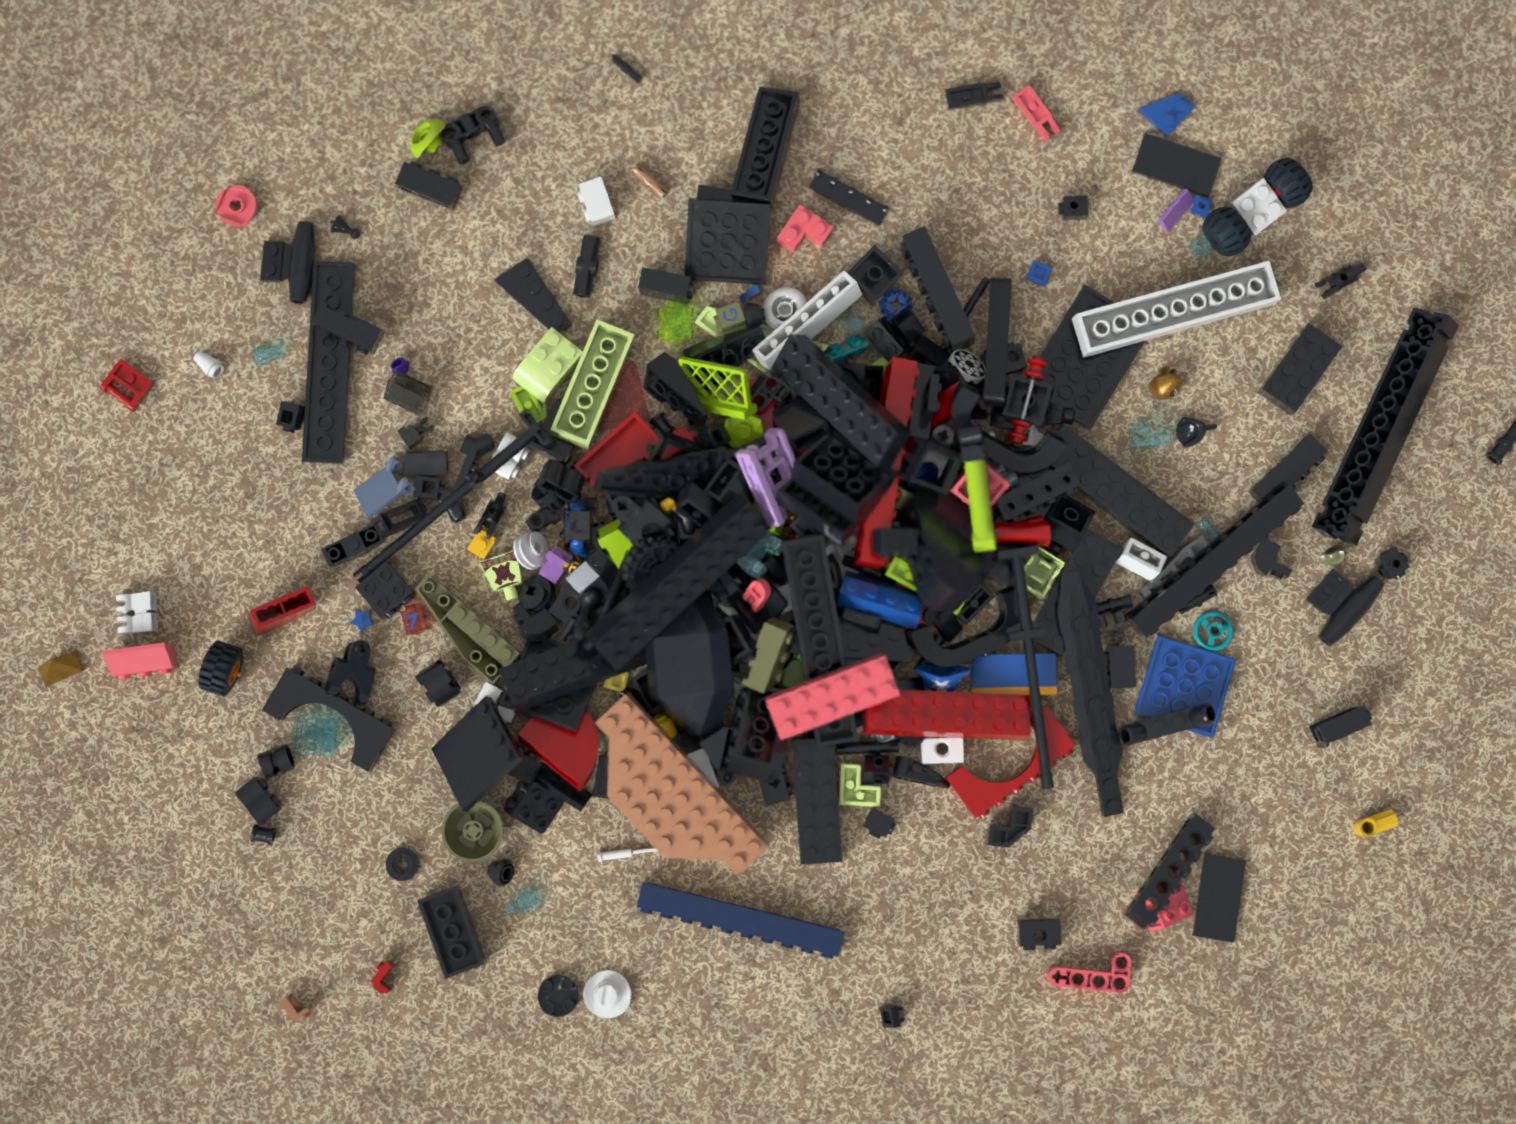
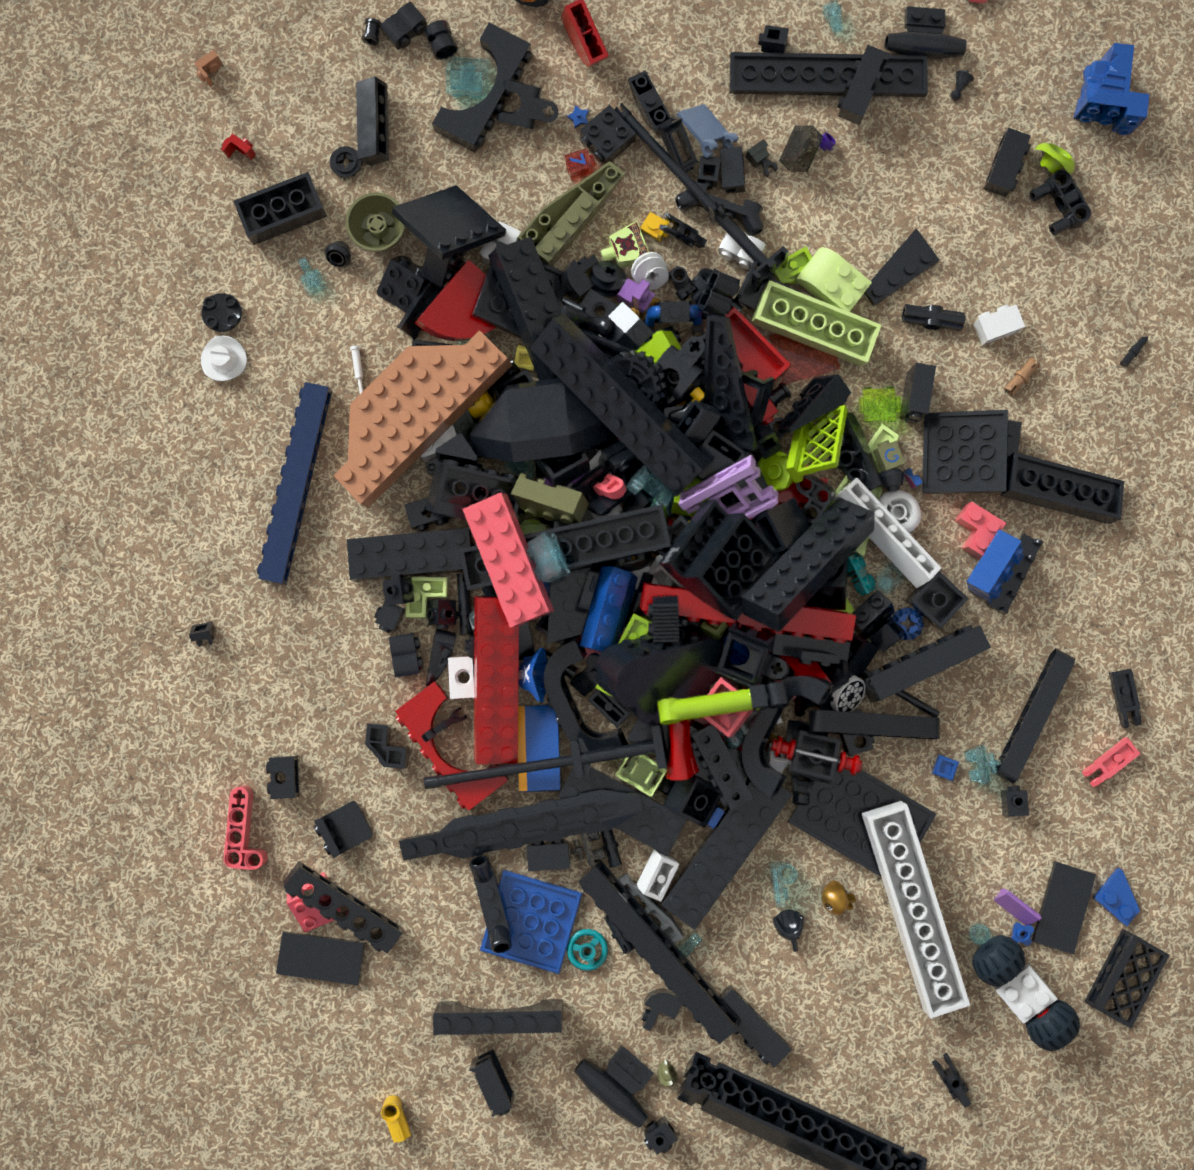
camera: 85 degrees right, 0 degrees up
(361, 834) = (372, 121): none -> black brick
(362, 83) = (1107, 95): none -> blue brick
(439, 683) = (518, 187): black brick -> none
(832, 655) = (547, 557): none -> clear light blue slope
(843, 216) = (995, 566): none -> blue piece
(854, 811) = (398, 590): none -> black brick
(918, 807) = (405, 654): none -> black brick
(982, 759) = (454, 718): none -> black piece
(989, 184) = (1034, 715): none -> black beam
(1036, 236) = (981, 774): none -> clear light blue hips
(1082, 498) = (716, 816): none -> blue tile
(1091, 872) = (343, 829): none -> black bracket
(1240, 123) = (1113, 971): none -> black fence
(1279, 758) = (457, 1019): none -> black arch
(1299, 369) = (858, 1038): black brick -> none

